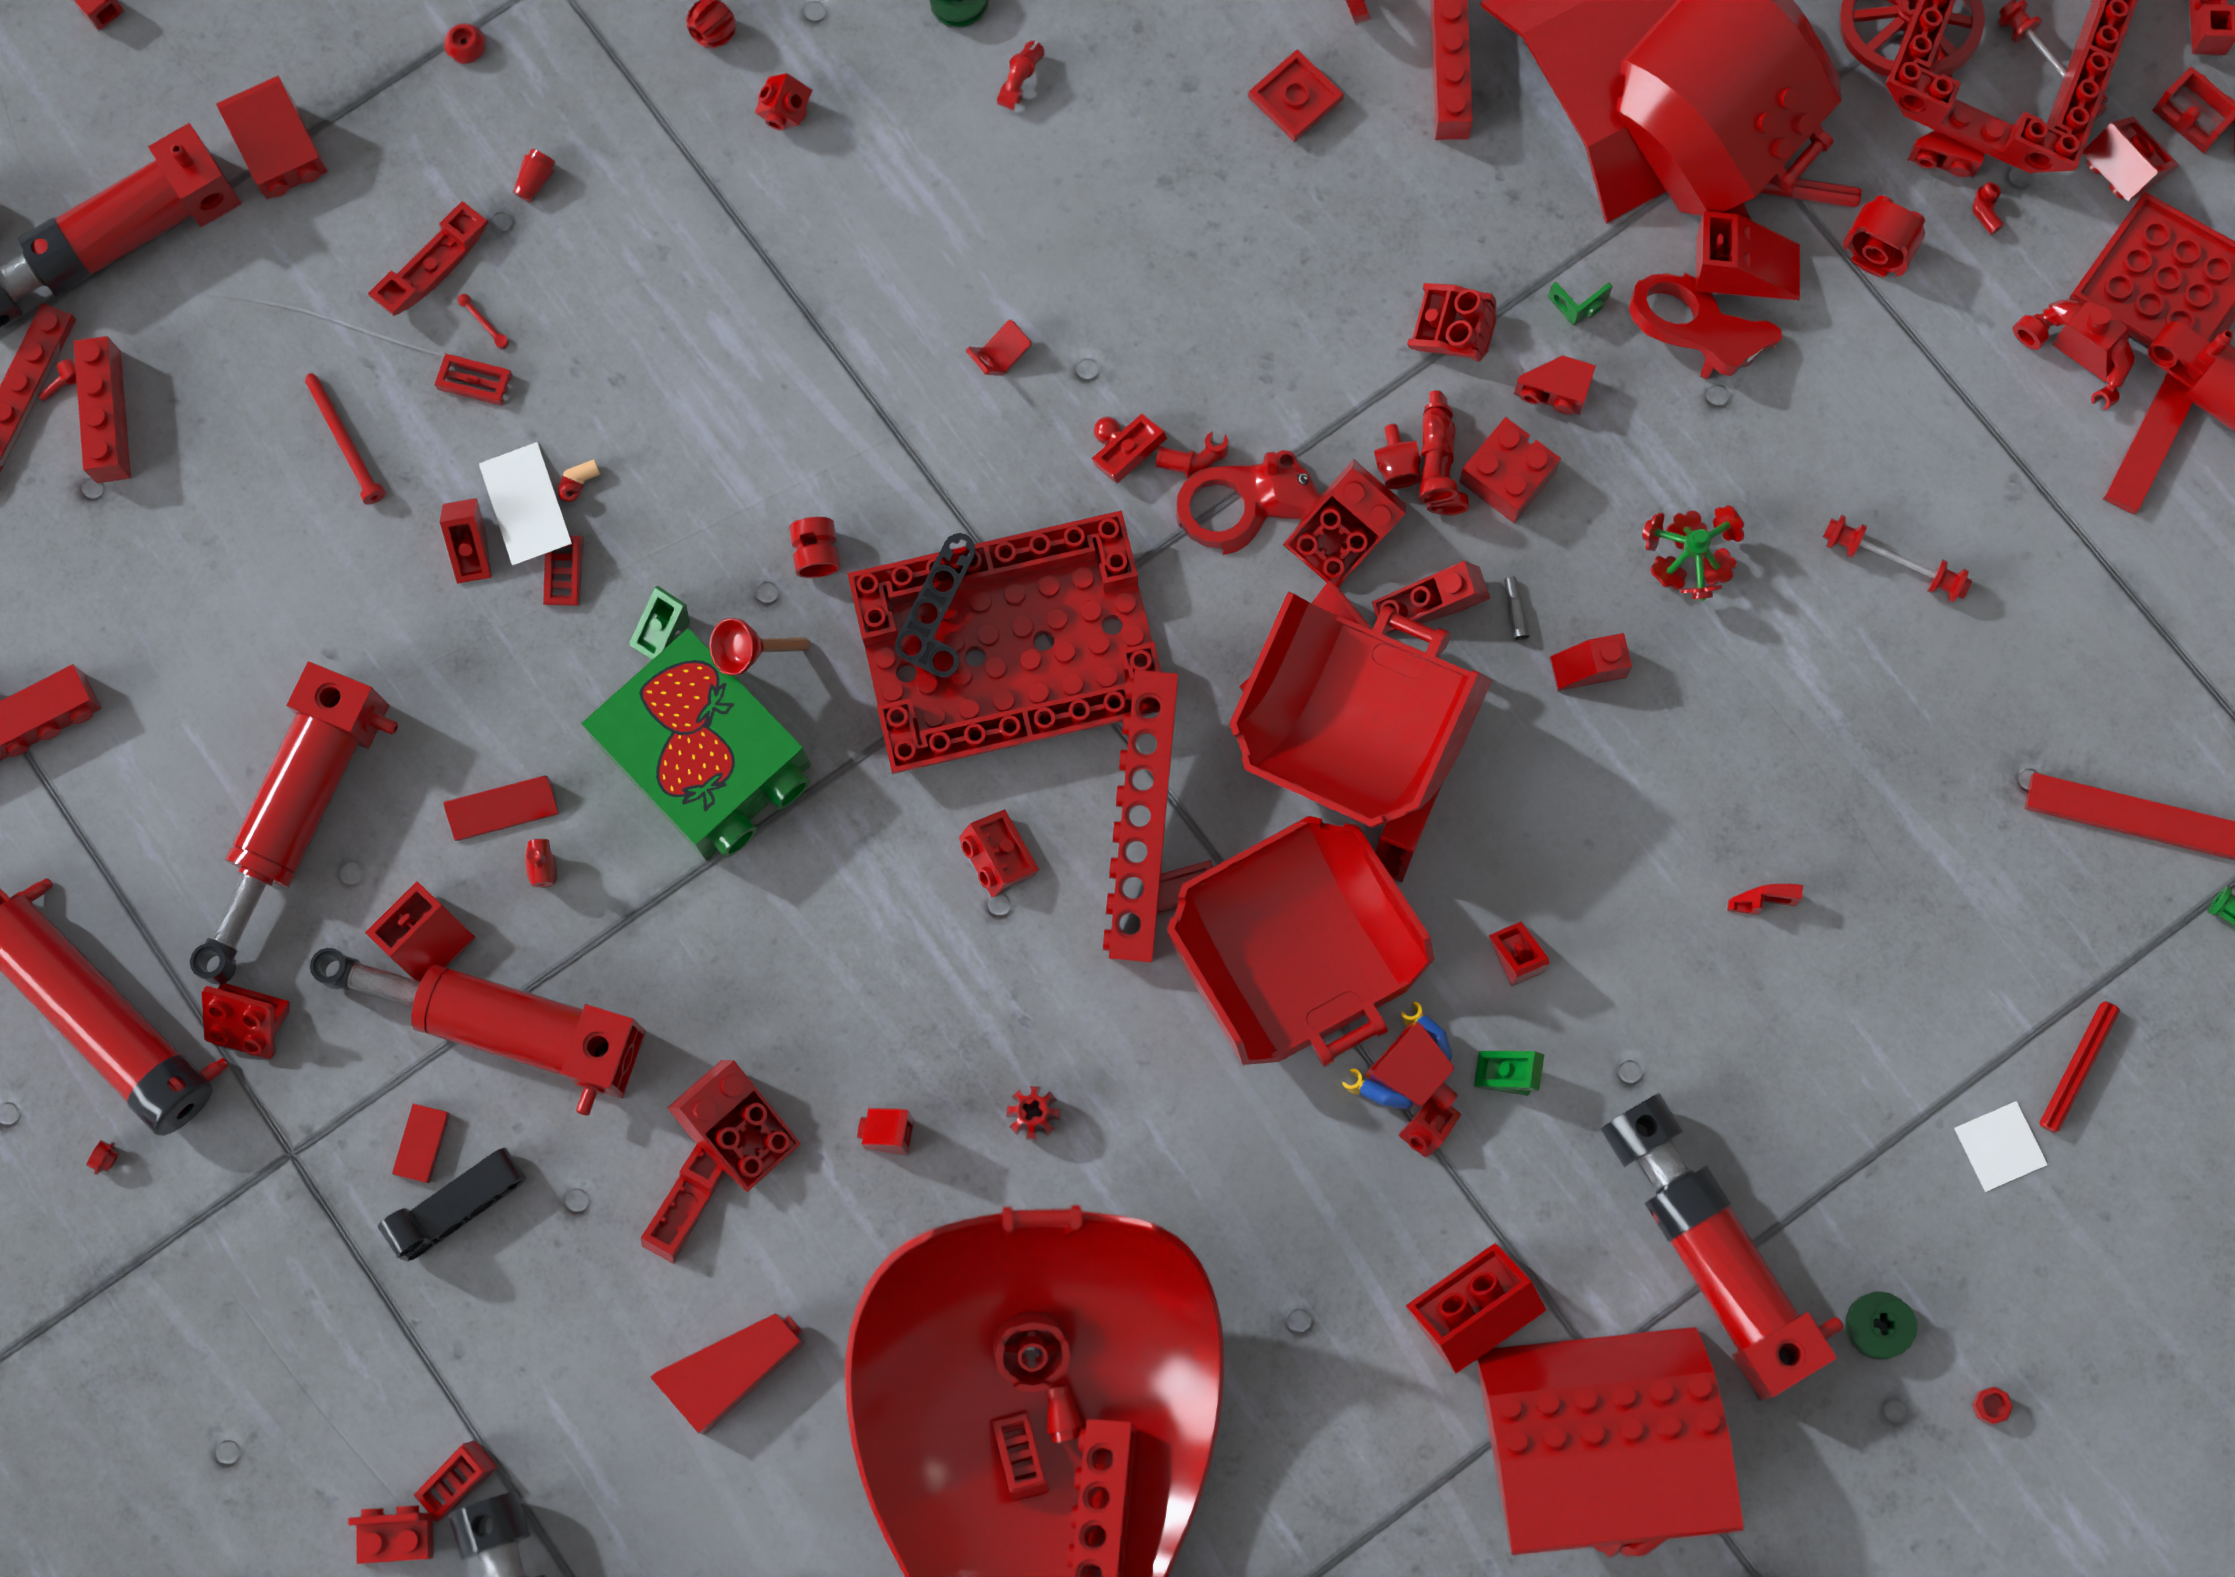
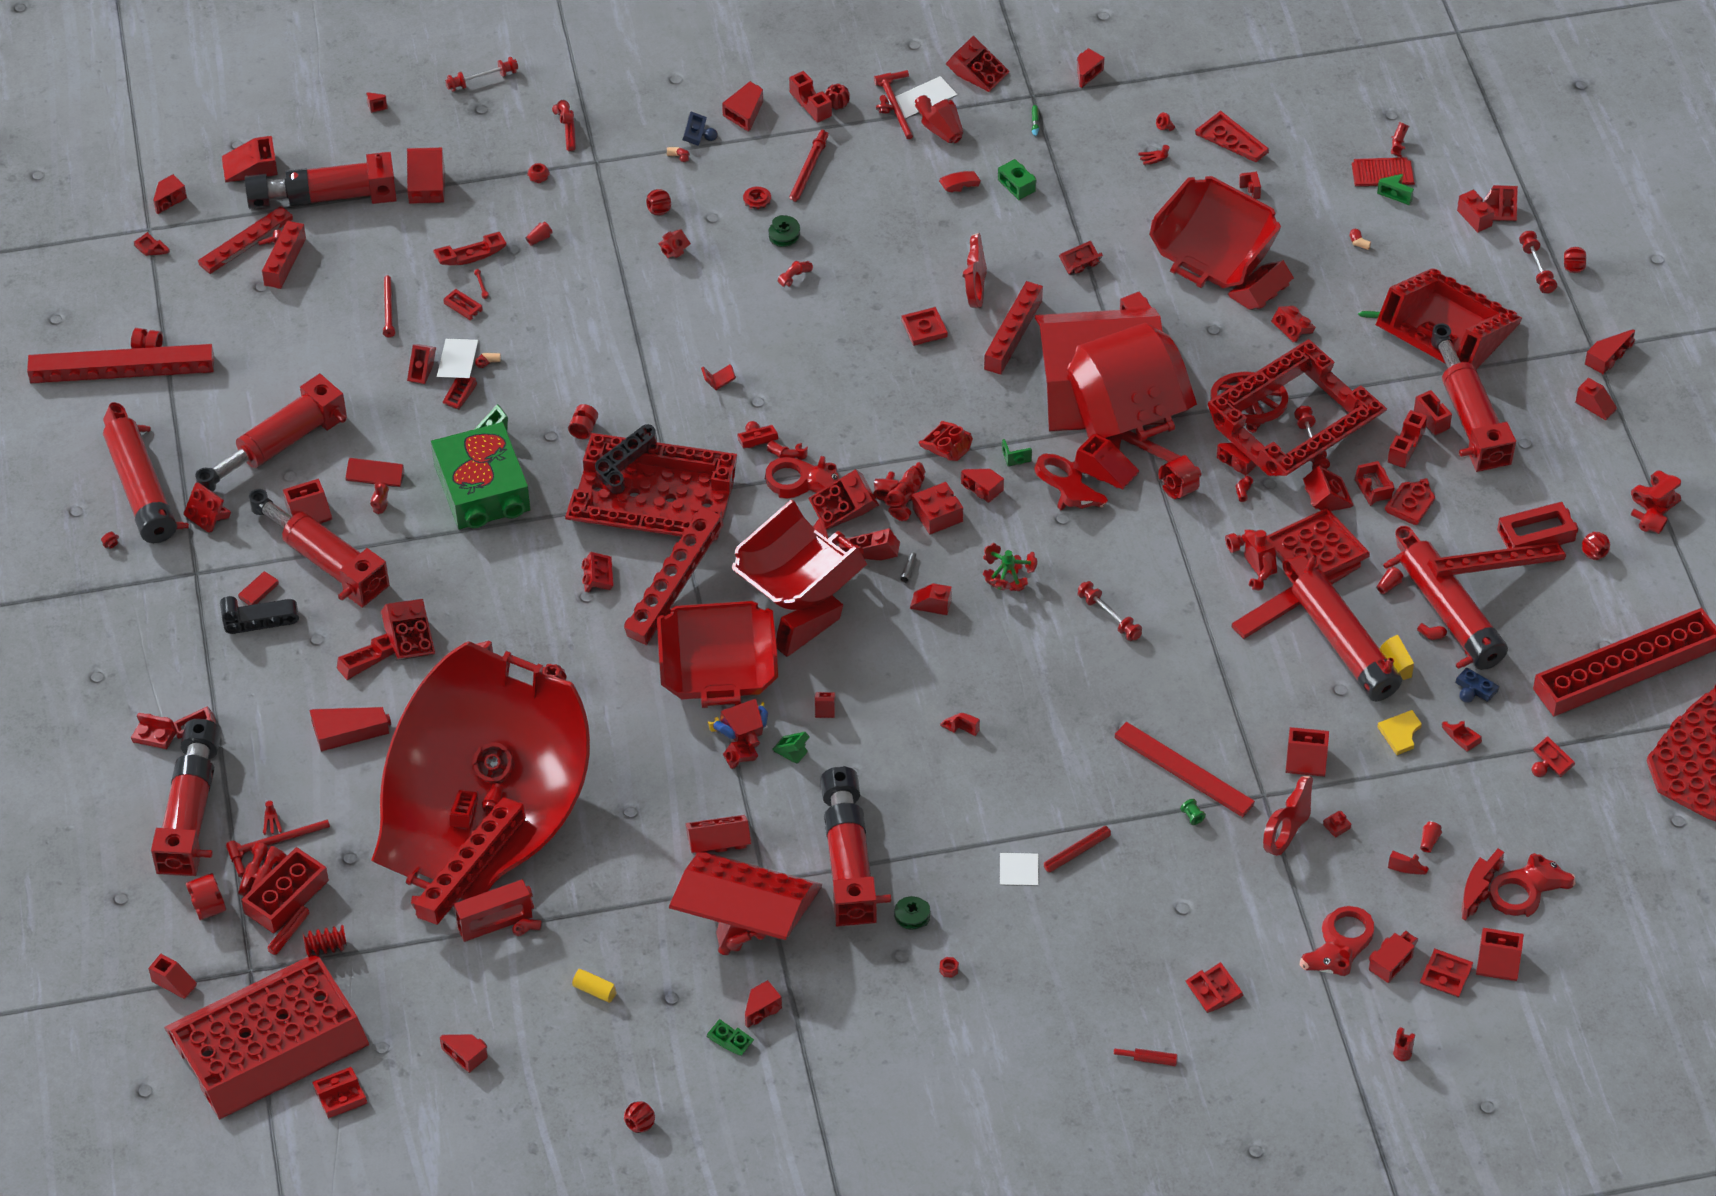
camera: 20 degrees right, 25 degrees down
(737, 646) = (522, 434): red piece -> none

